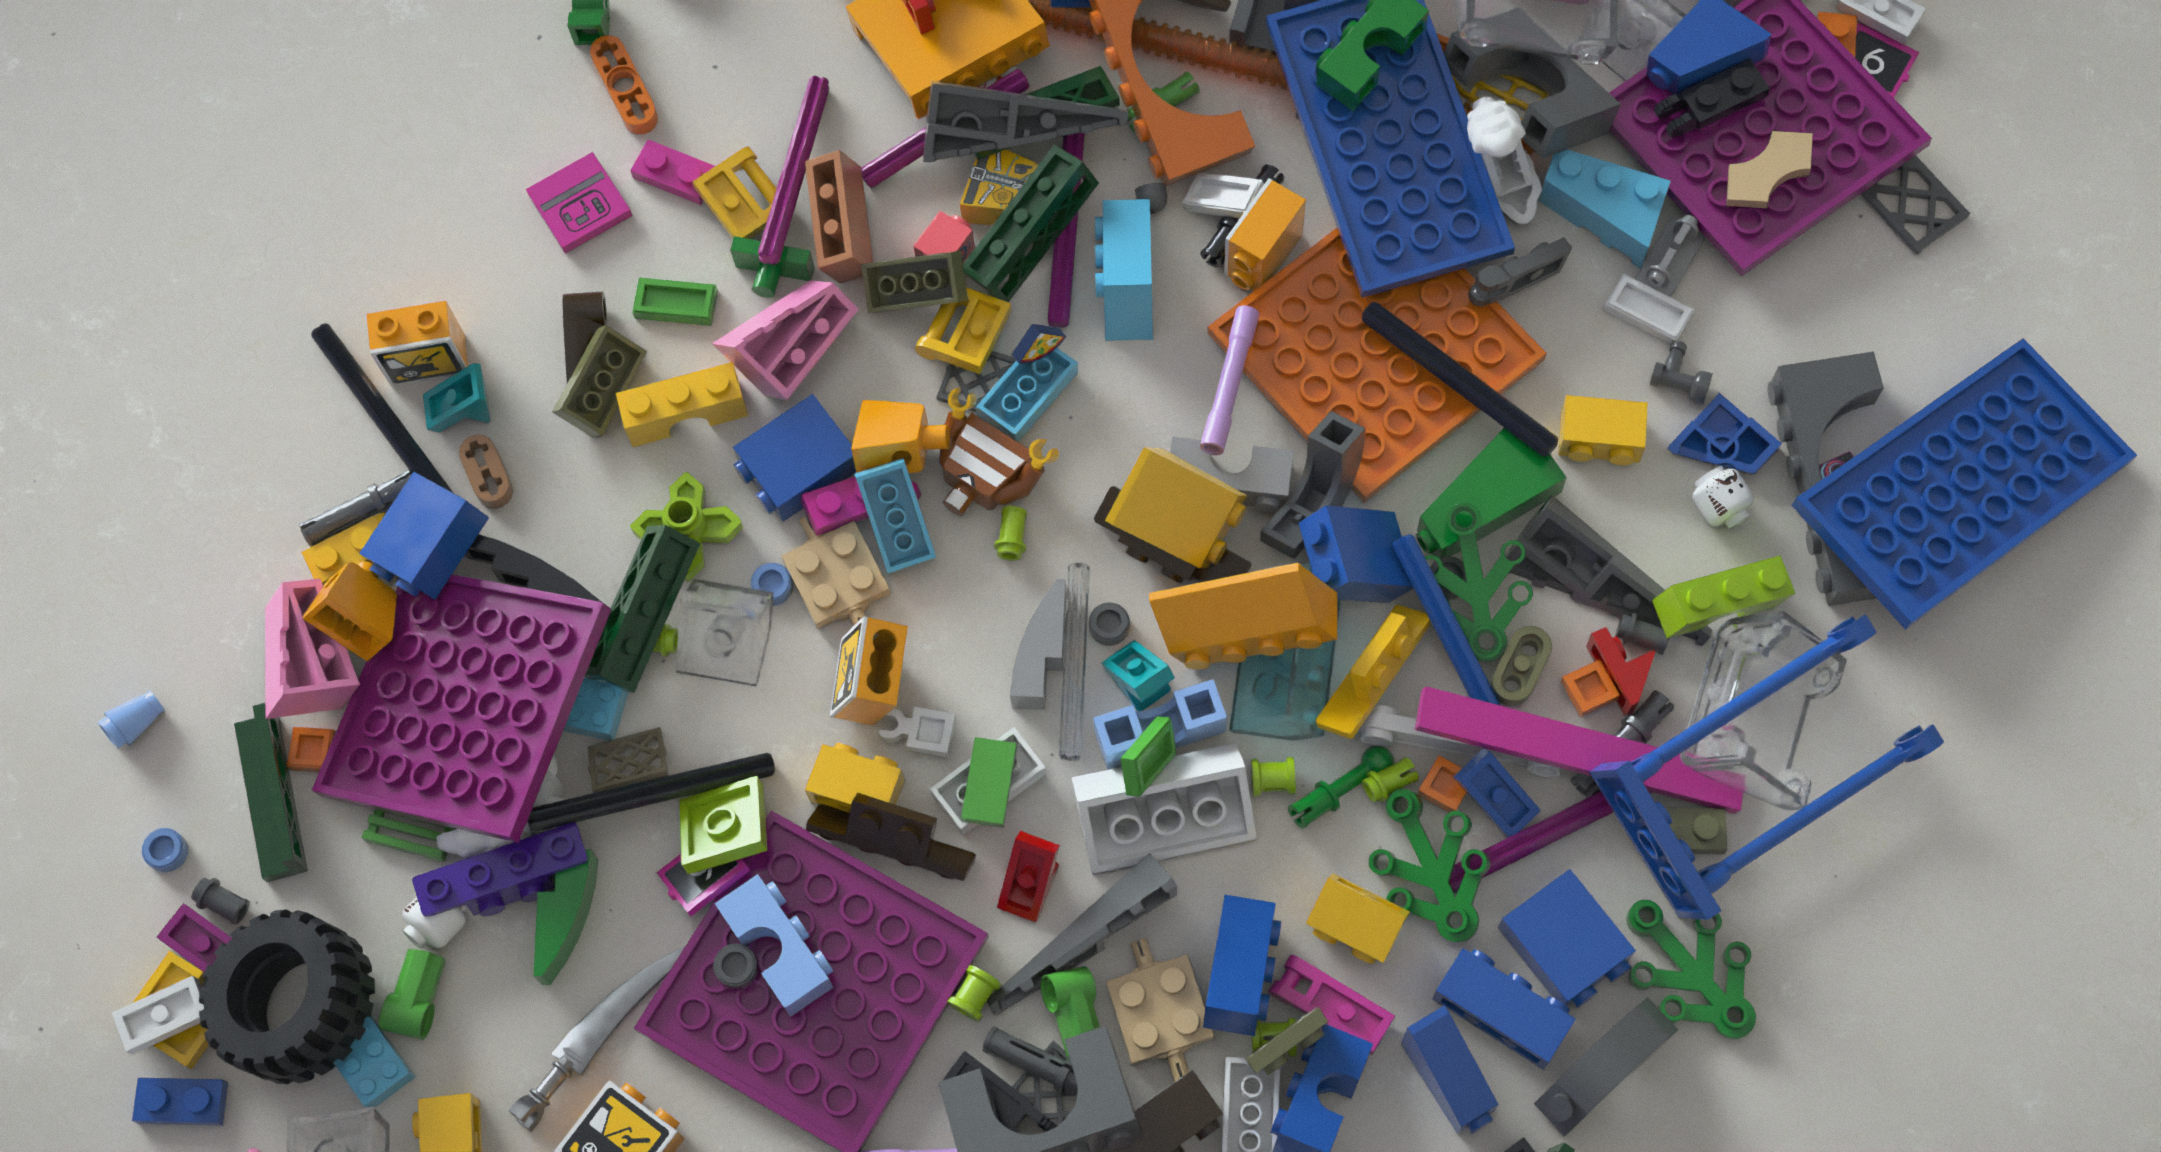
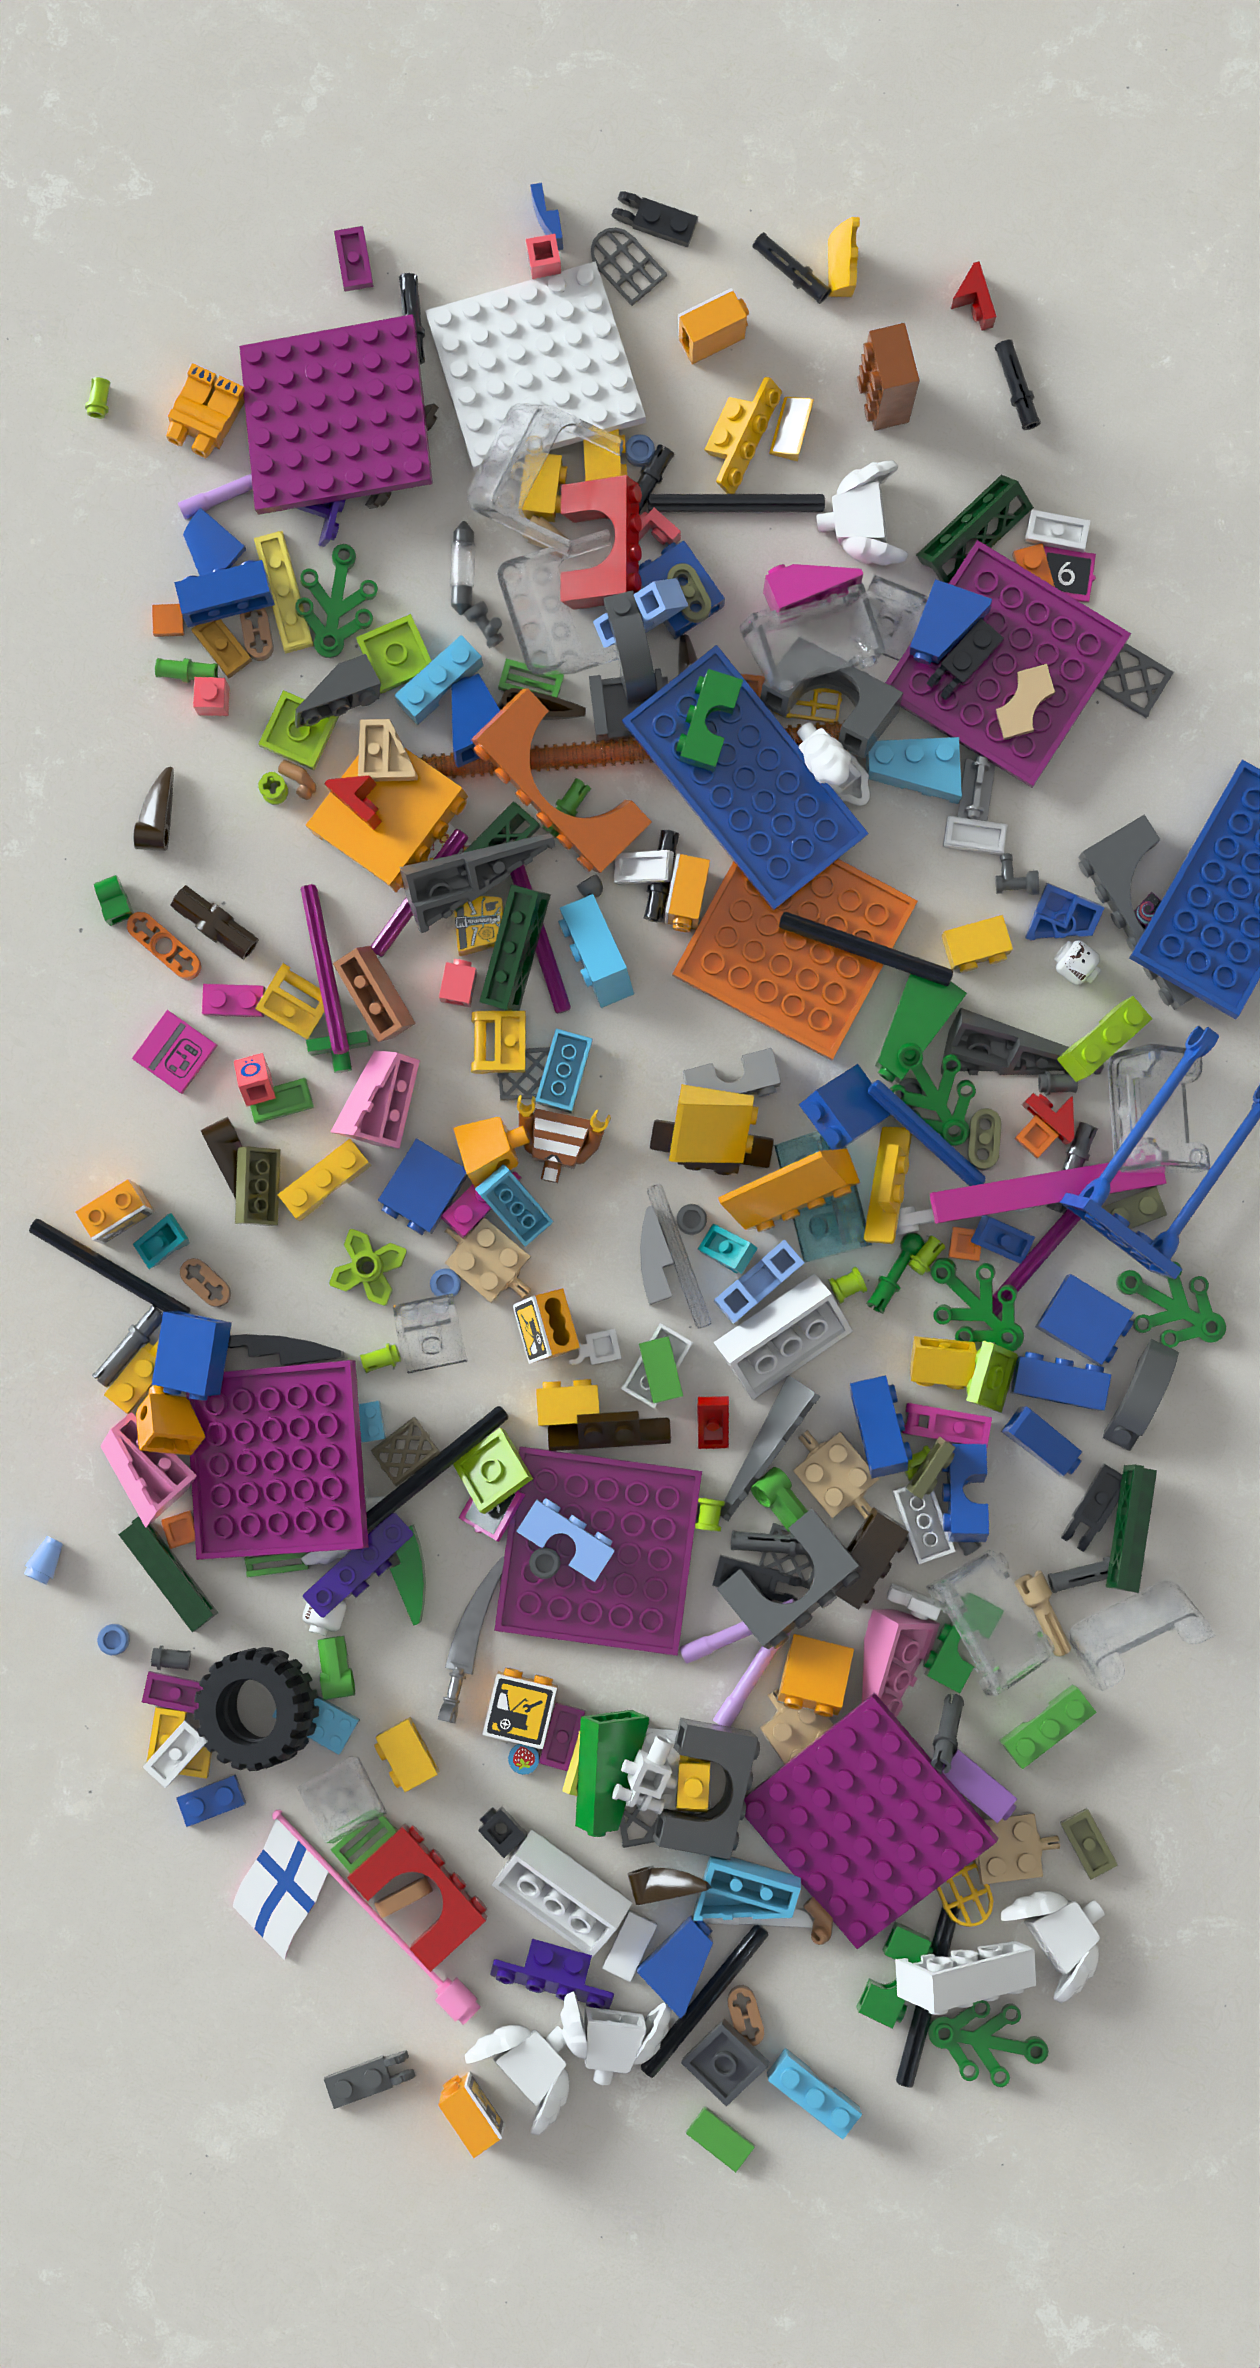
camera: 25 degrees left, 15 degrees up
(642, 606) = (370, 1340): dark green fence -> none
(653, 260) = (254, 1079): none -> coral brick
(693, 78) = (214, 922): none -> dark brown piece
(914, 282) = (451, 1024): olive piece -> none
(1010, 541) = (597, 1181): lime pin -> none
(1038, 343) = (560, 1038): tile -> none
(1148, 756) = (763, 1312): bright green tile -> none
(1219, 419) = (701, 979): lavender piece -> none
(1327, 478) = (800, 1070): dark grey arch -> none
(1414, 959) = (991, 1376): none -> lime plate
(1517, 273) = (876, 848): dark grey hinge -> none

